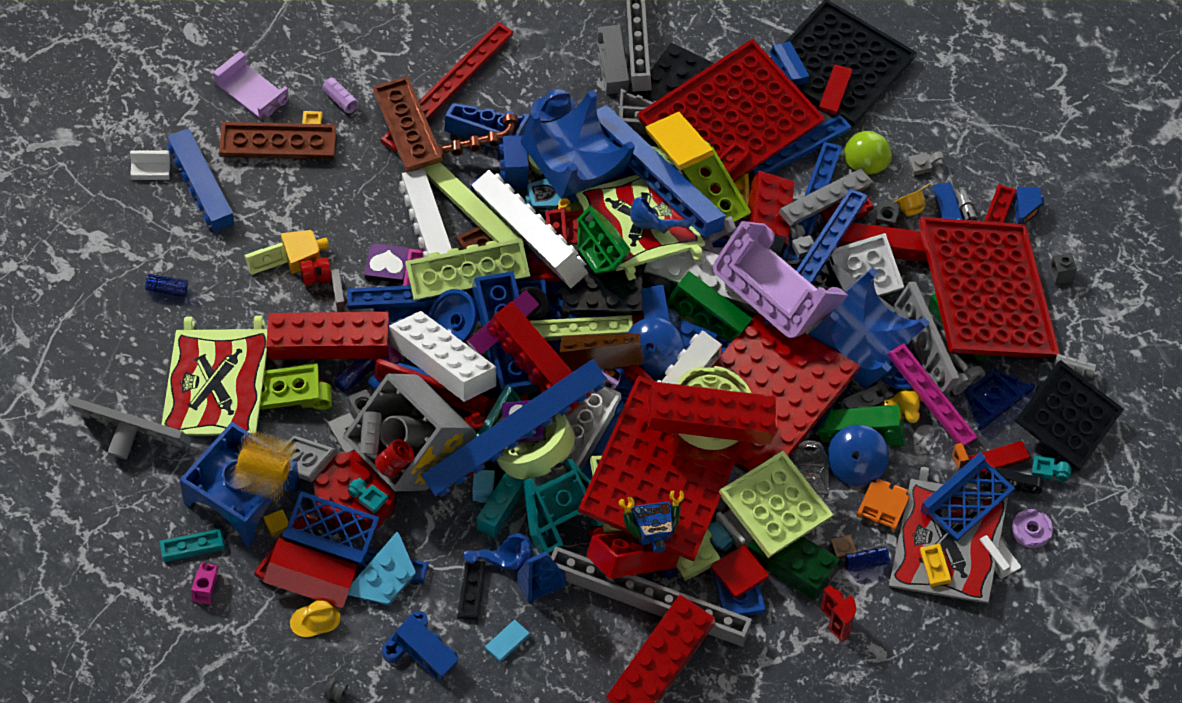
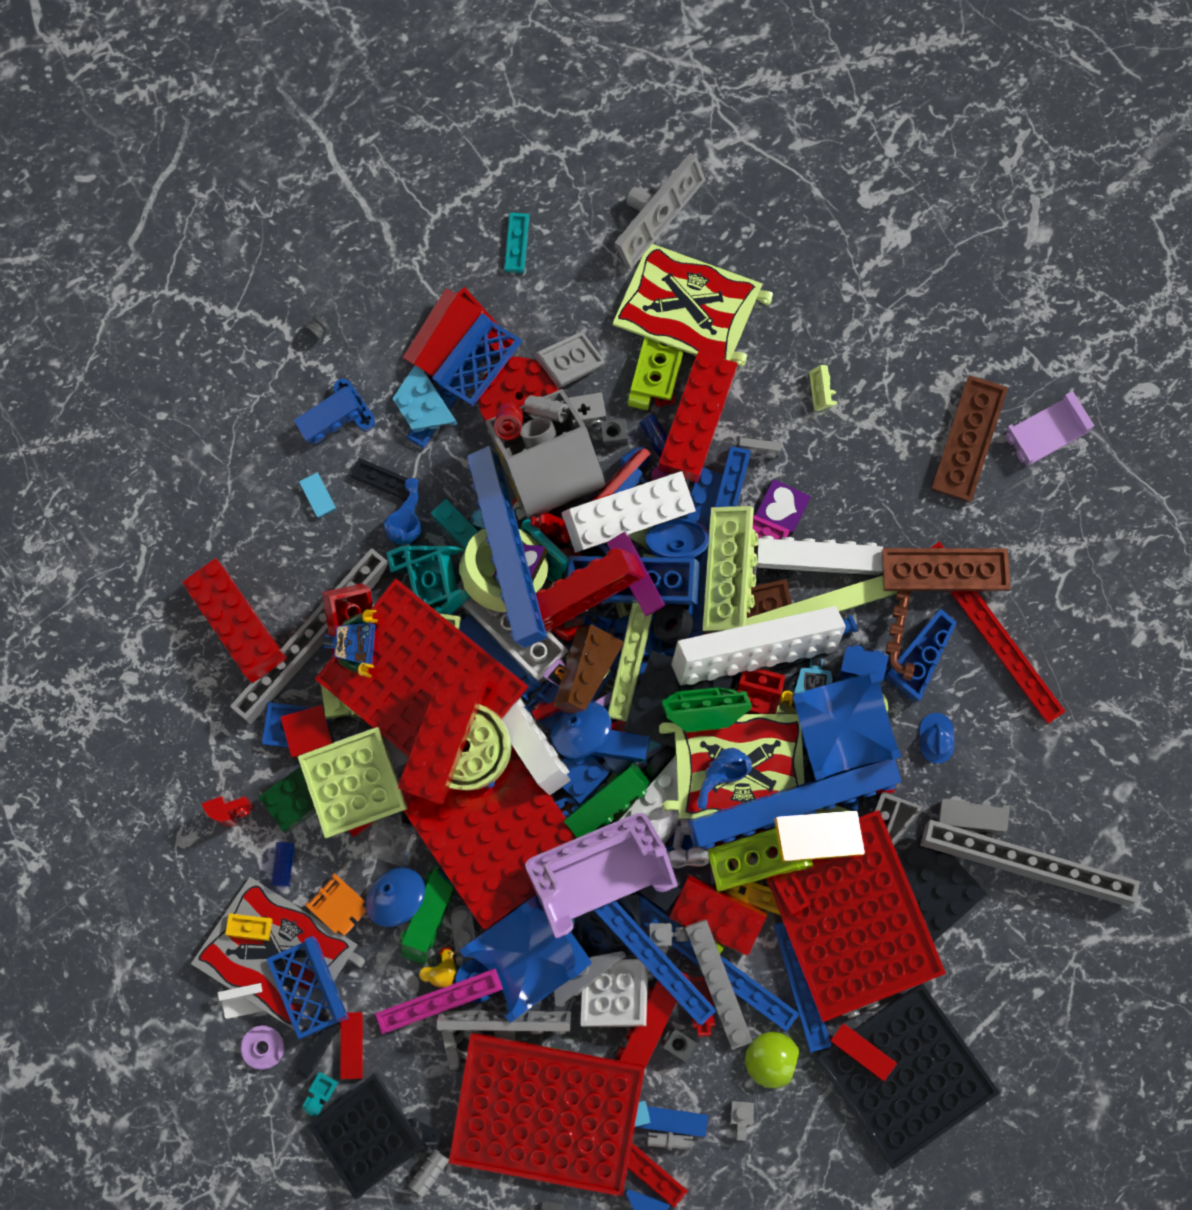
camera: 115 degrees right, 20 degrees up
(150, 165) = (971, 305): white panel -> none
(166, 285) = (817, 286): clear blue axle -> none
(200, 180) = (939, 348): brick -> none
(204, 583) = (470, 242): dark pink leg -> none
(210, 483) = (556, 288): blue piece -> none
(263, 466) = (537, 296): yellow piece -> none
(276, 522) = (515, 322): yellow tile -> none
(302, 247) = (821, 426): yellow torso -> none
(309, 274) = (788, 430): red wheel -> none
(312, 117) = (989, 481): yellow tile -> none
(315, 619) = (401, 331): yellow piece -> none
(340, 95) = (1011, 516): lavender axle -> none
(370, 498) = (493, 401): teal plate -> none
(540, 577) = (363, 532): blue wedge -> none
(721, 538) = (354, 726): medium azure brick -> none
(789, 62) = (911, 1011): blue piece -> none
(842, 546) = (306, 847): medium nougat tile -> none
(912, 203) = (690, 1082): yellow piece -> none
(960, 456) = (363, 1004): orange tile -> none
(995, 395) = (423, 1073): clear blue wing -> none

